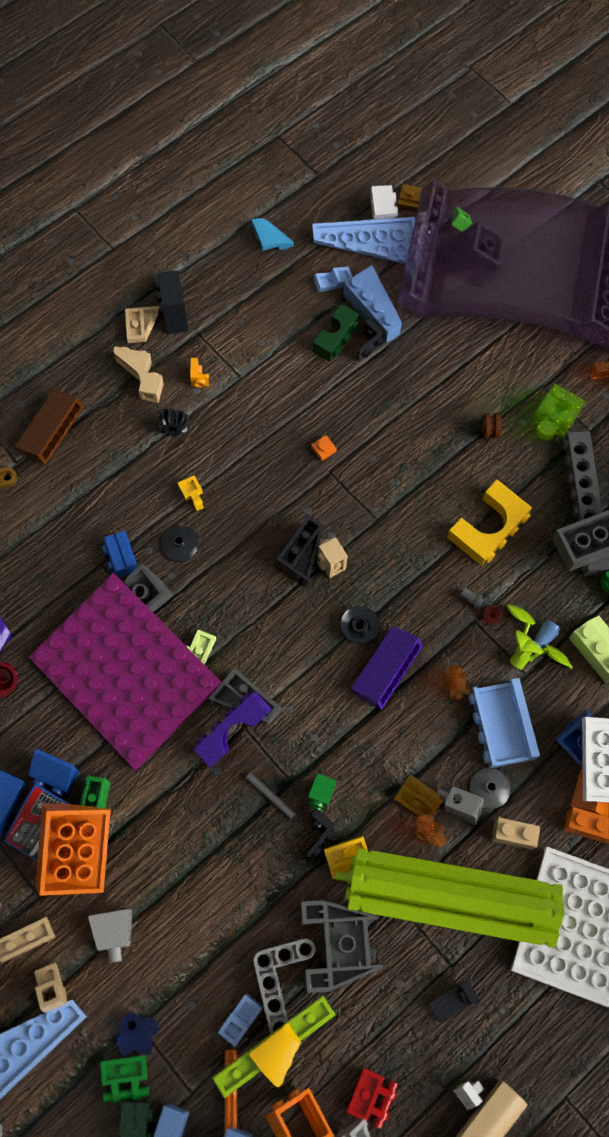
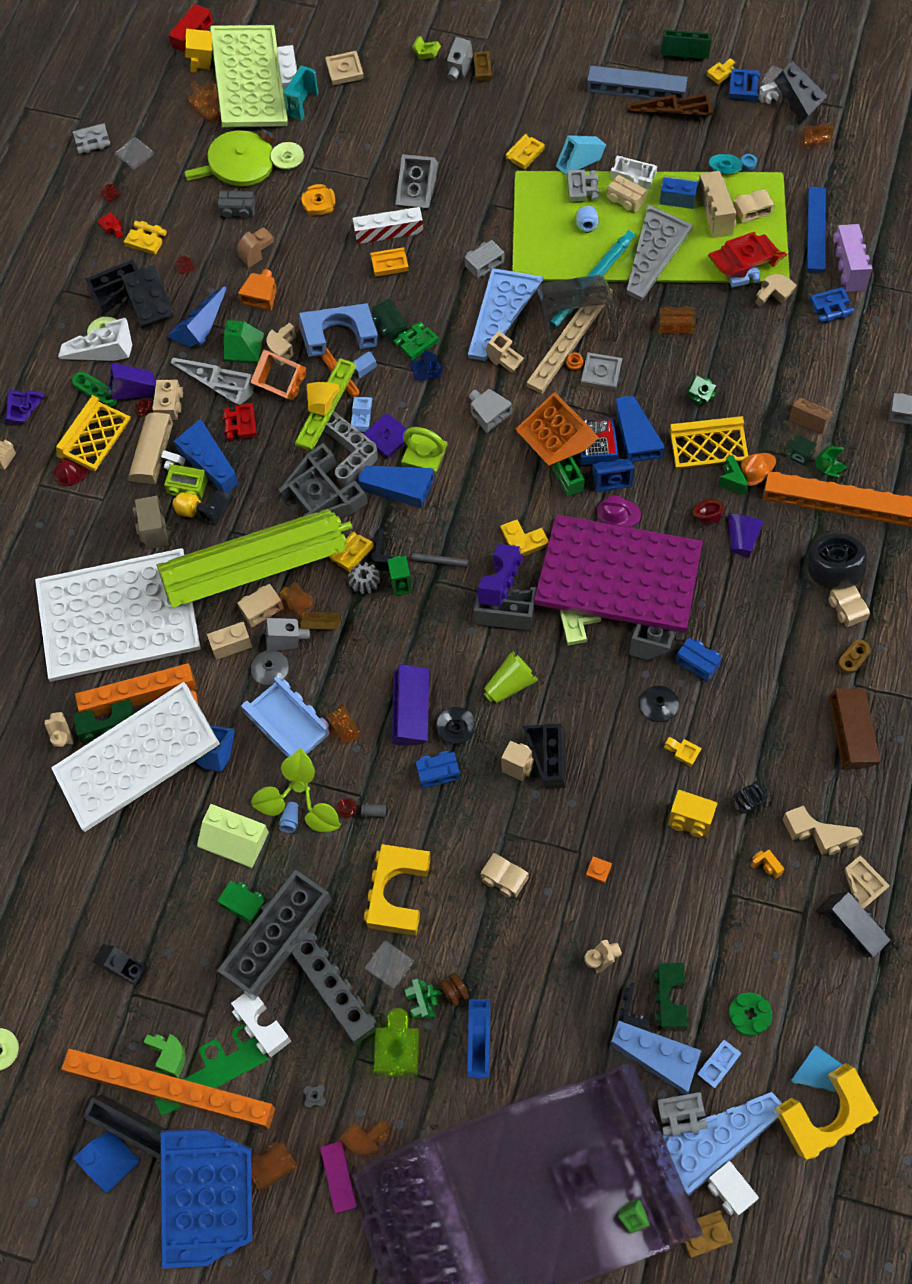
camera: 155 degrees right, 5 degrees down
(76, 737) = (618, 511): none -> magenta piece
(185, 762) = (528, 542): none -> yellow plate
(199, 1085) = (364, 364): none -> medium blue piece
(208, 925) = (423, 449): none -> lime tile
(226, 434) = (692, 814): none -> yellow brick
(231, 973) = (387, 435): none -> dark purple plate
(254, 899) = (398, 483): none -> blue slope
(271, 200) = (855, 1110): none -> yellow arch
(288, 633) = (509, 679): none -> lime cone
(292, 286) = (760, 1007): none -> green plate
(359, 824) = (368, 572): none -> light grey gear
(367, 381) = (602, 955): none -> tan hips
(383, 267) = (681, 1108): none -> light grey plate
(399, 597) = (437, 769): none -> blue brick
(400, 483) = (504, 875): none -> tan brick
(433, 1078) = (203, 453): none -> blue wedge
(468, 853) = (260, 605): none -> tan brick
(470, 1053) = (185, 480): none -> lime window
(482, 1022) = (186, 504): none -> yellow head
(495, 380) = (479, 1038): none -> blue arch
(515, 433) = (426, 999): none -> green hips
(527, 478) = (389, 964): none -> clear piece
(532, 1018) = (151, 522): none -> dark tan brick

